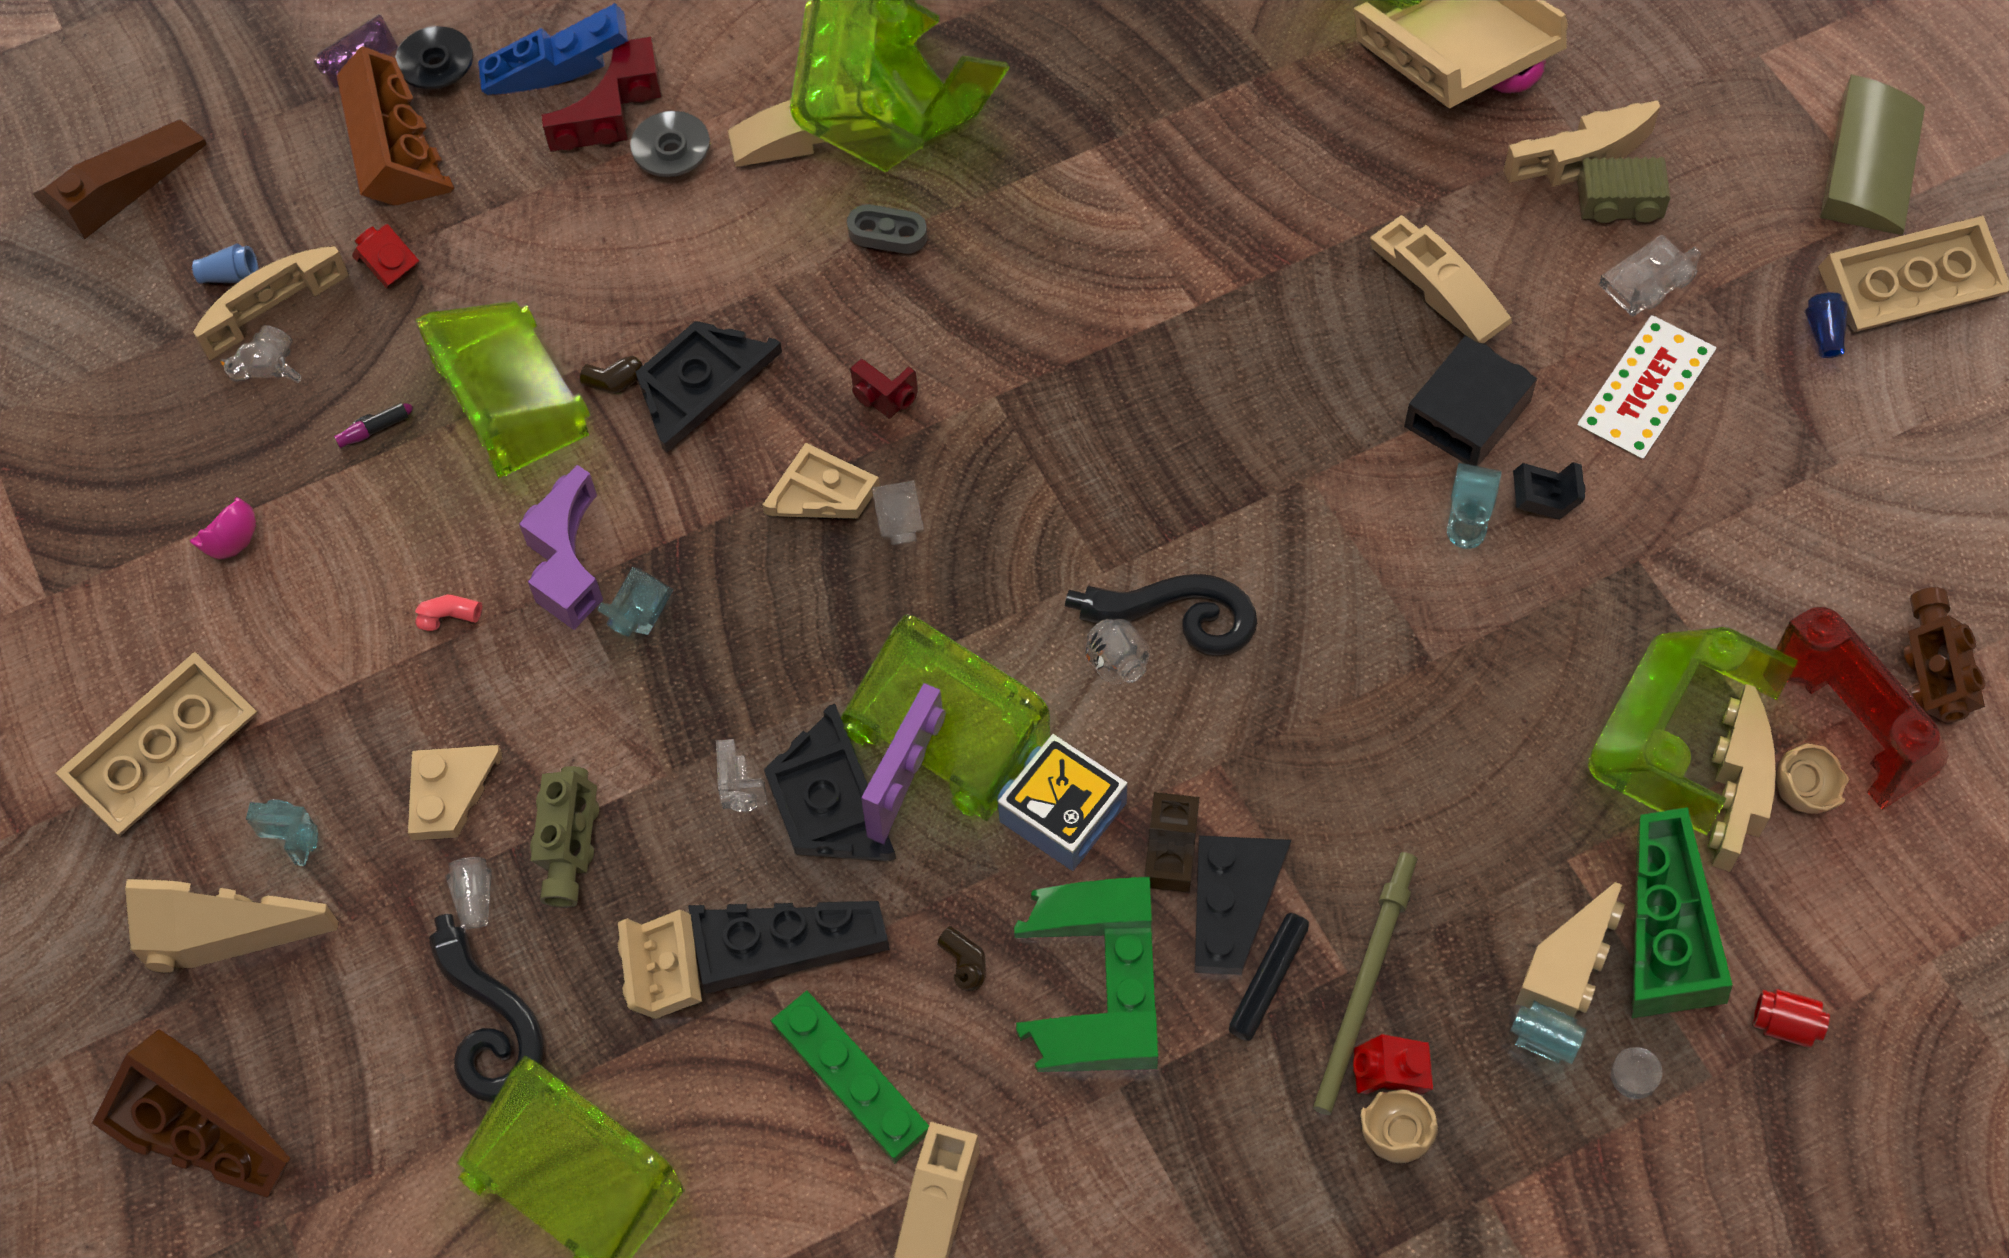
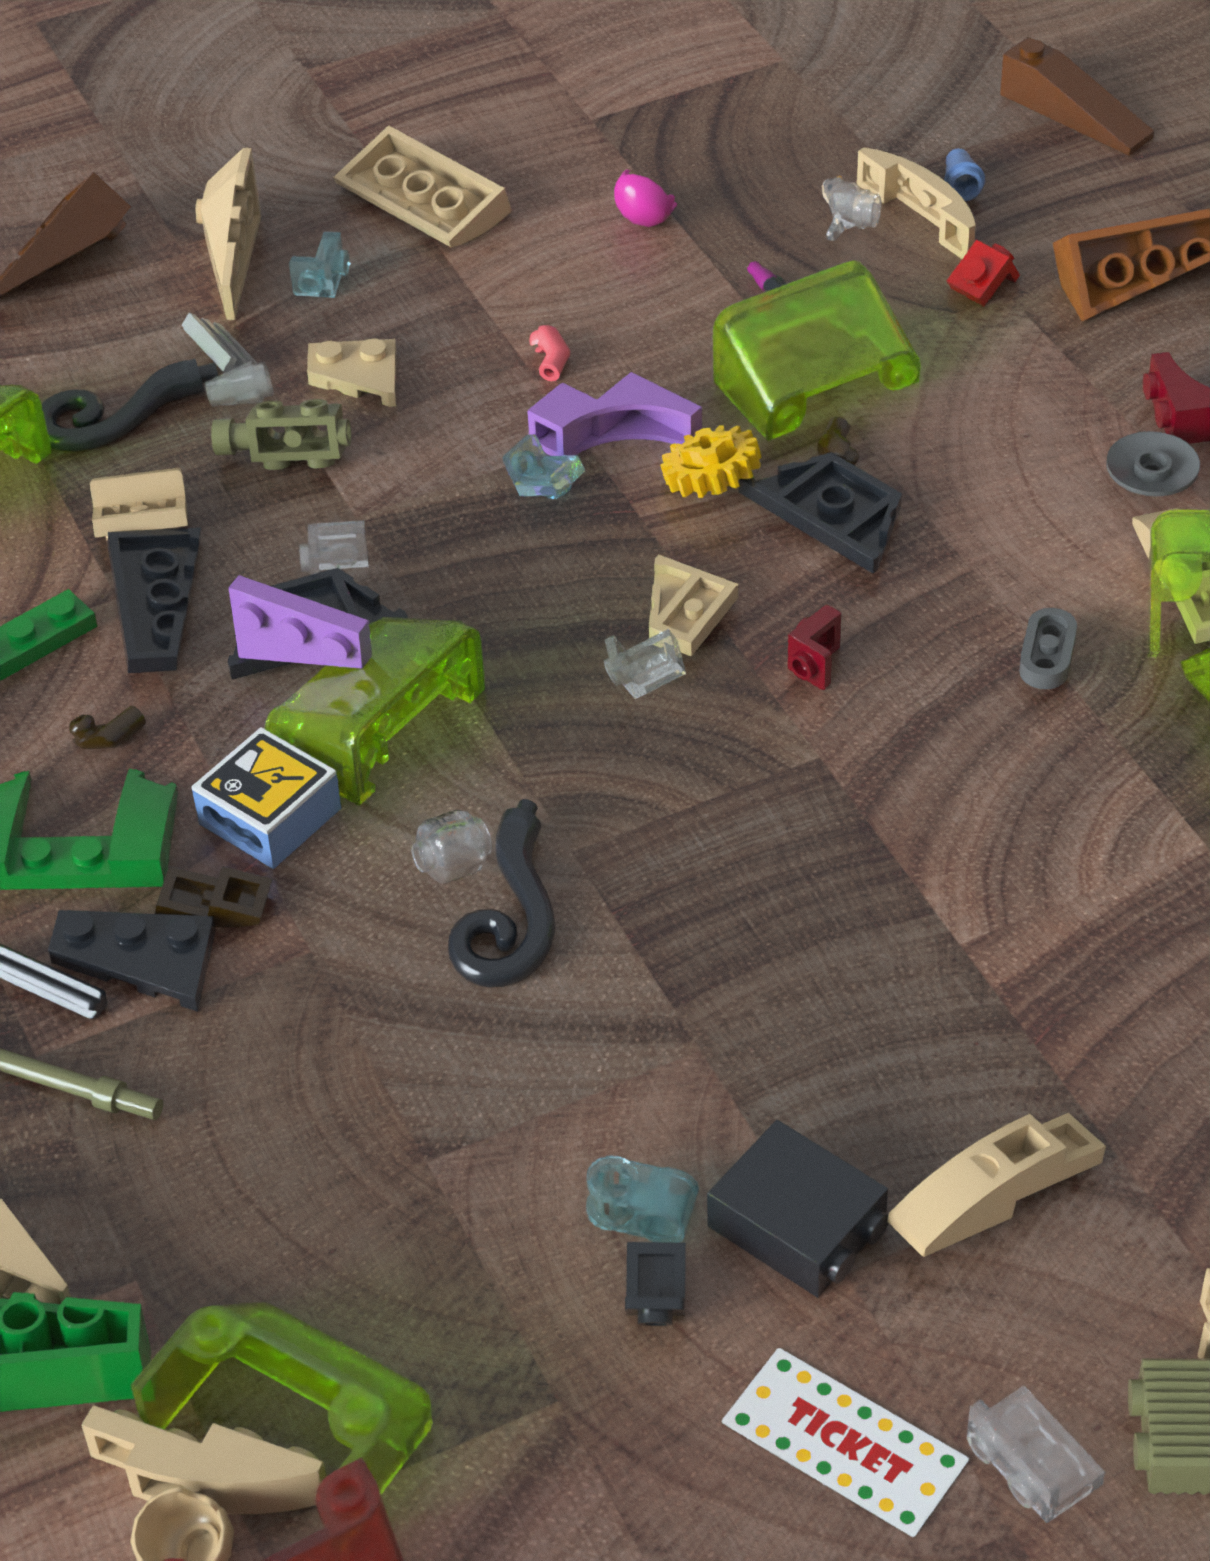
camera: 90 degrees right, 15 degrees down
(405, 916) = (216, 342): none -> light grey tile
(652, 475) = (711, 461): none -> yellow gear

